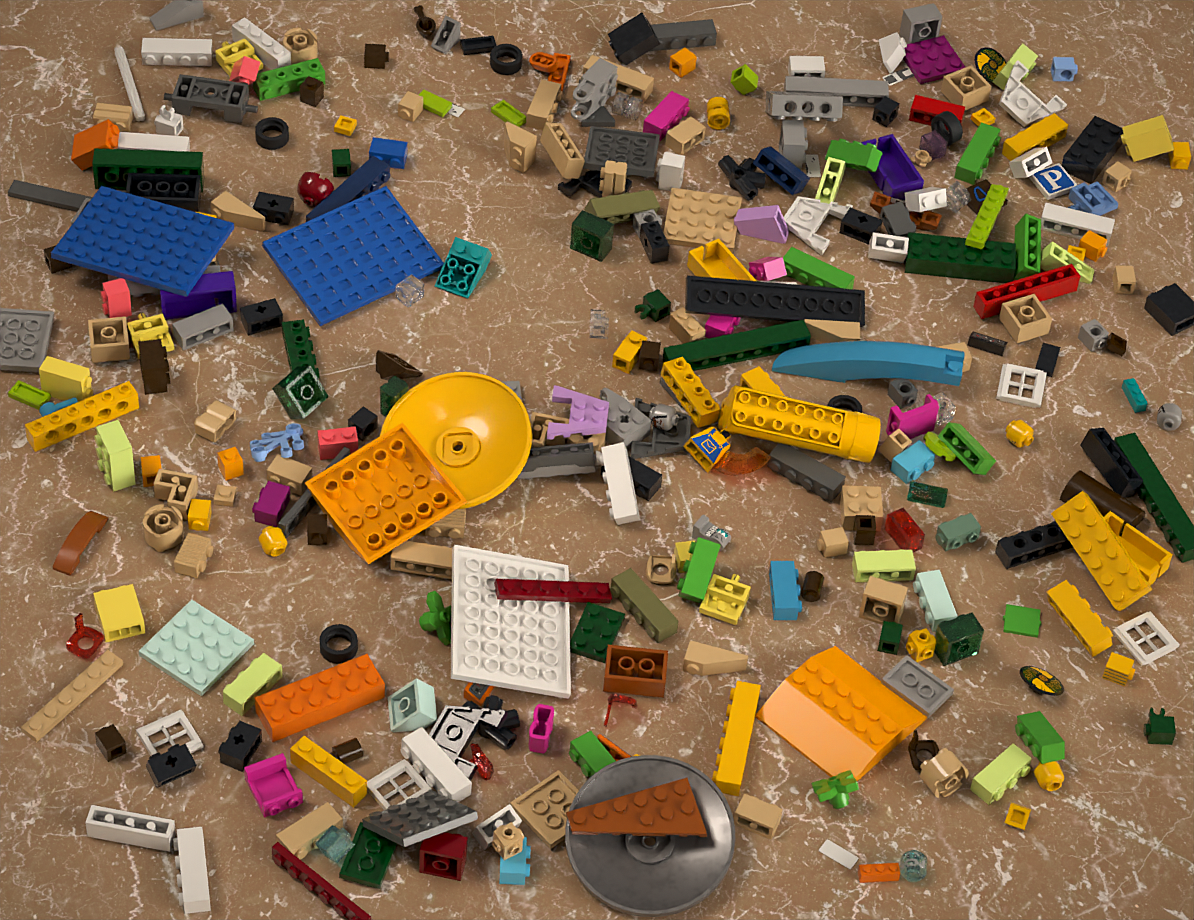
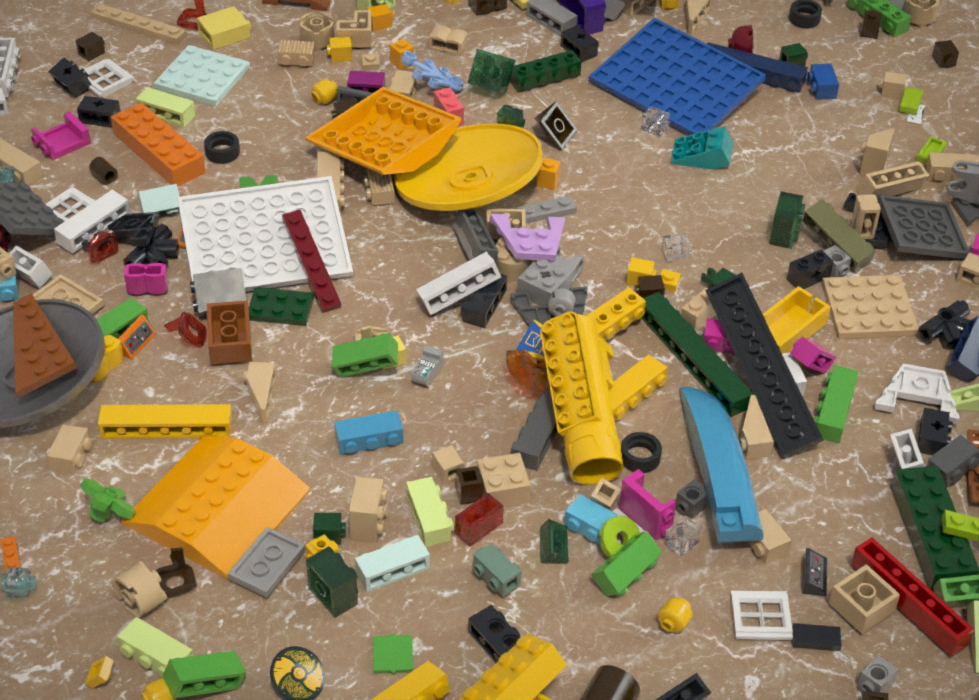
camera: 80 degrees right, 5 degrees down
(274, 207) = (712, 28): black brick -> none
(328, 771) = (76, 161): yellow brick -> none
(345, 125) = (843, 52): yellow plate -> none
(364, 421) = (478, 115): black brick -> none
(582, 670) = (217, 288): none -> panel
(644, 605) = (318, 331): olive brick -> none
(671, 171) = (913, 263): white brick -> none
(725, 599) = (344, 389): light yellow plate -> none
(762, 223) = (885, 349): lavender slope -> none
(812, 586) = (380, 455): dark brown brick -> none
(838, 854) = (36, 526): white sticker -> none

